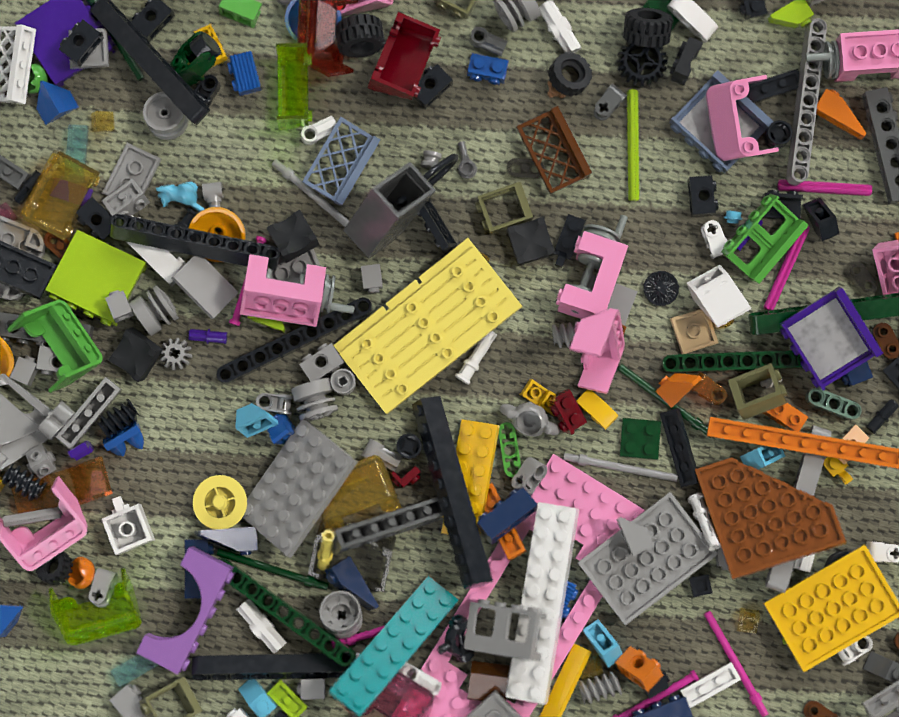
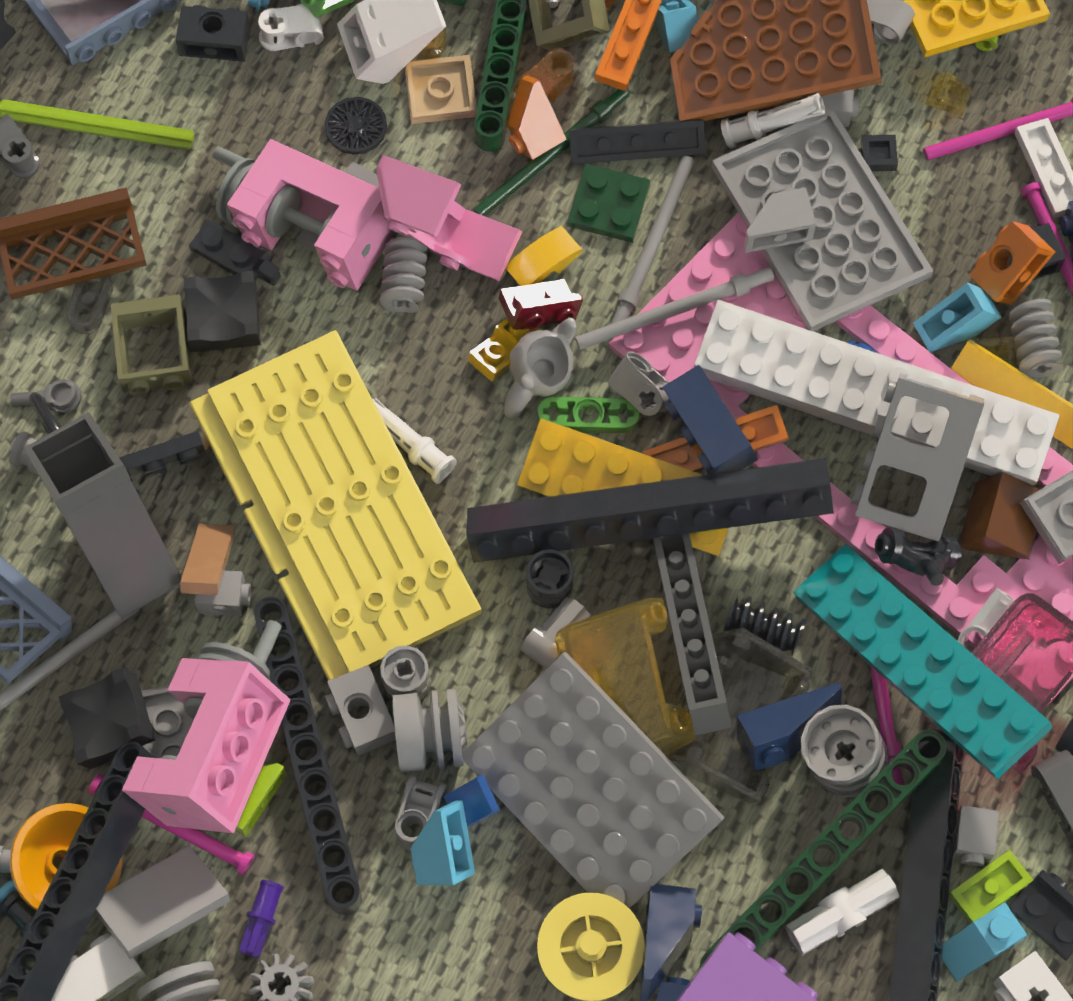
camera: 80 degrees left, 15 degrees down
(308, 580) = (767, 811): dark green bar -> none
(325, 553) = (704, 734): light yellow pin -> none
(385, 267) = (207, 559): none -> medium nougat tile
(404, 563) = (767, 627): none -> black piece
(411, 477) = (606, 588): dark red bracket -> none
(597, 518) = (737, 286): none -> light grey bar

